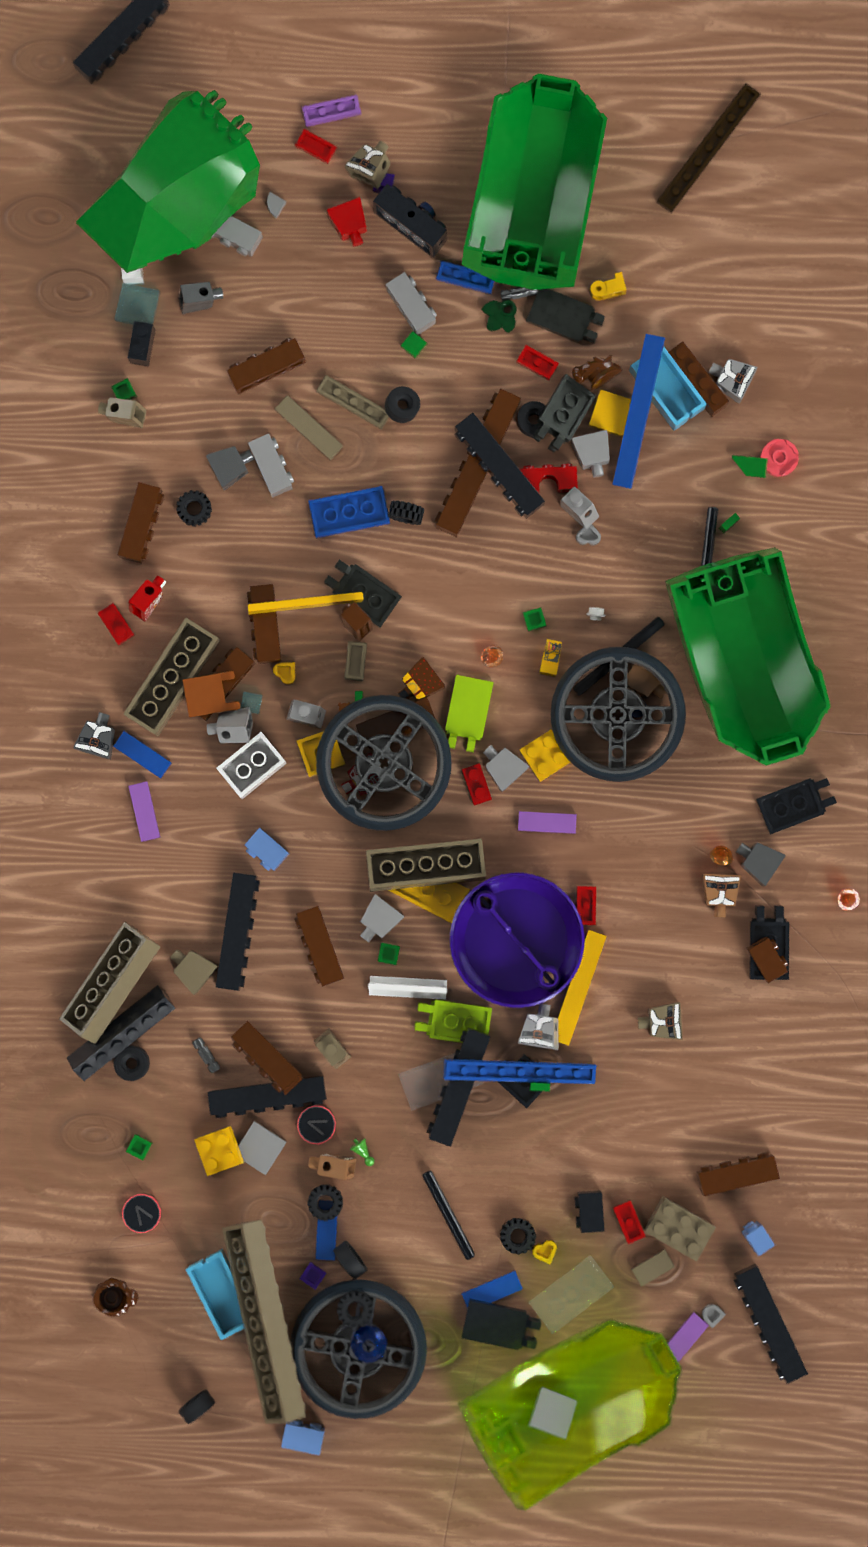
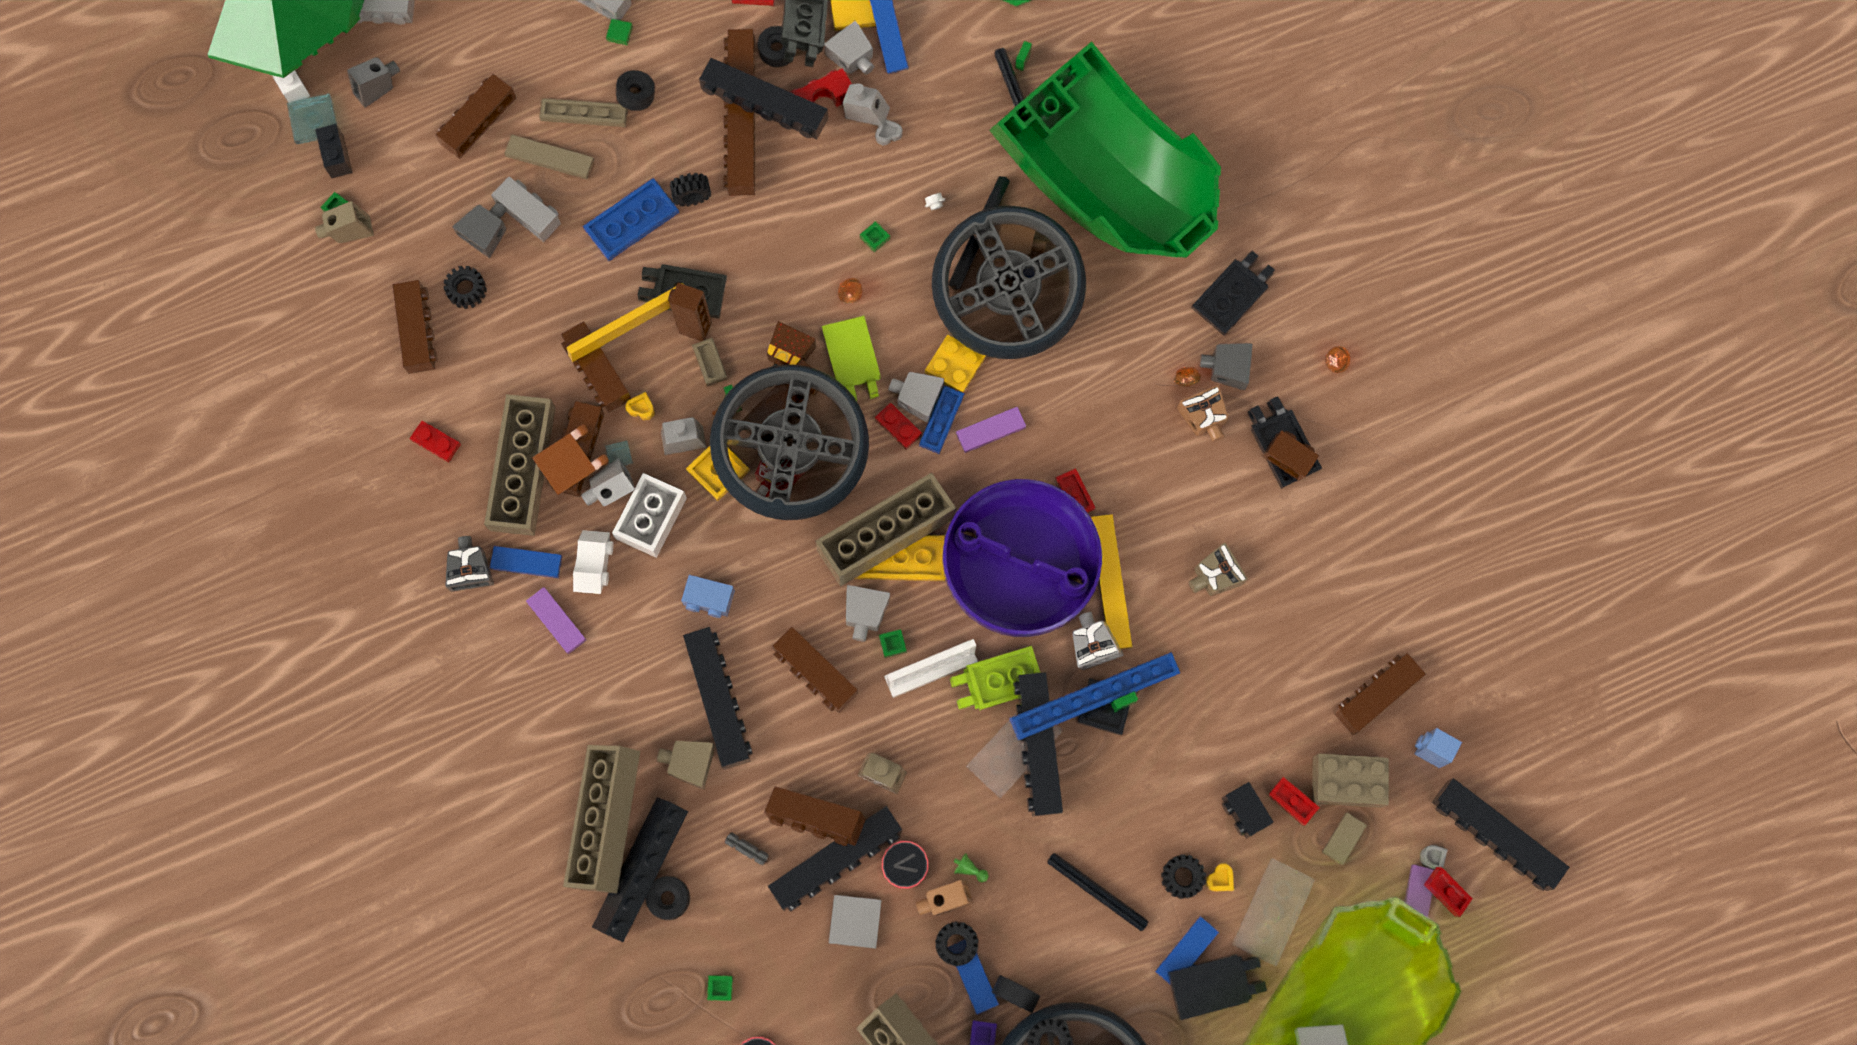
camera: 30 degrees left, 10 degrees down
(142, 603) = (455, 398): red torso -> none
(191, 780) = (592, 561): none -> white brick
(219, 1150) = (811, 946): yellow plate -> none
(513, 795) = (941, 419): none -> blue tile
(550, 658) = (911, 266): yellow leg -> none
(708, 1345) = (1448, 891): none -> red plate

